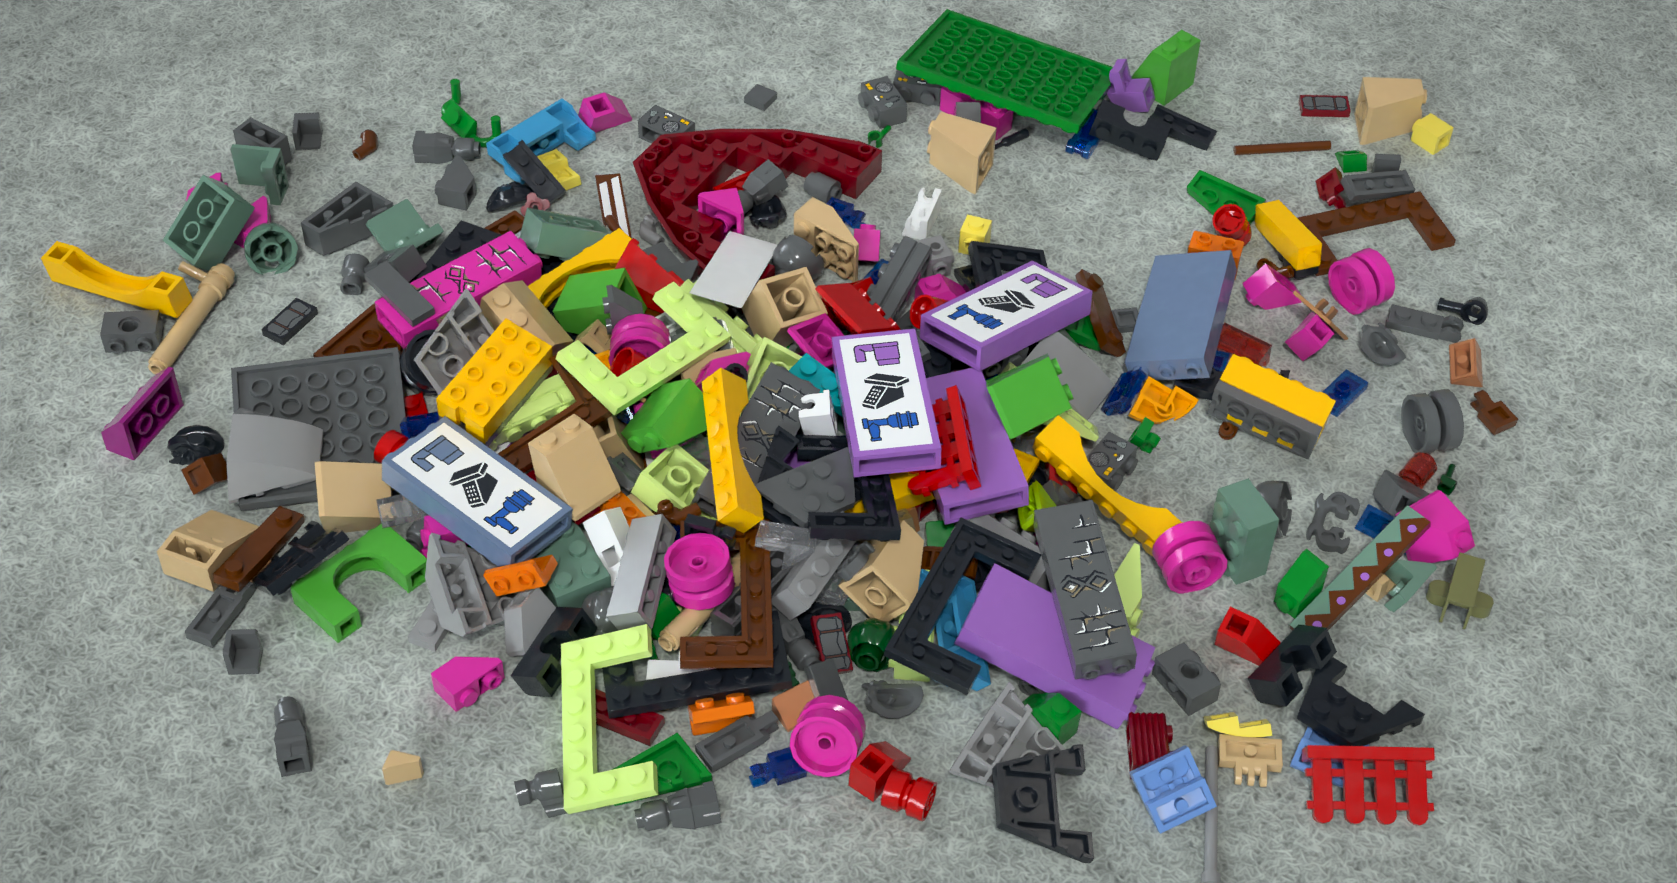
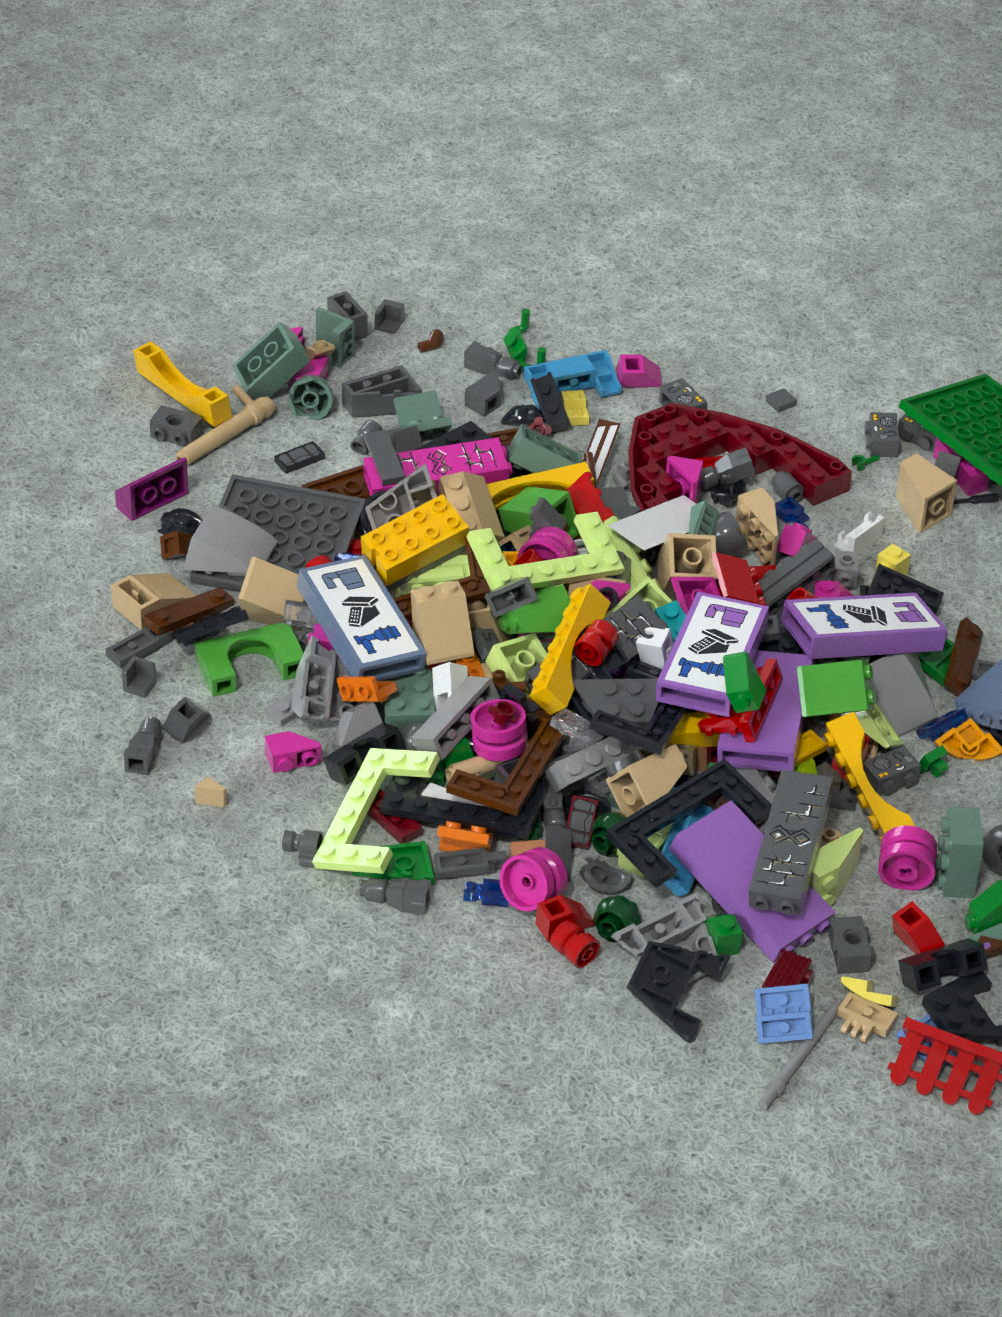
camera: 25 degrees right, 5 degrees down
(254, 190) = (320, 349): none -> tan slope
(324, 685) = (184, 719): none -> dark grey slope
(640, 410) = (511, 596): none -> dark grey slope
(702, 552) = (503, 712): none -> dark red plate
(759, 433) = (596, 642): none -> red wheel
(772, 254) = (703, 519): none -> sand green slope
(936, 737) = (615, 914): none -> dark green plant
(948, 426) = (743, 682): none -> green slope

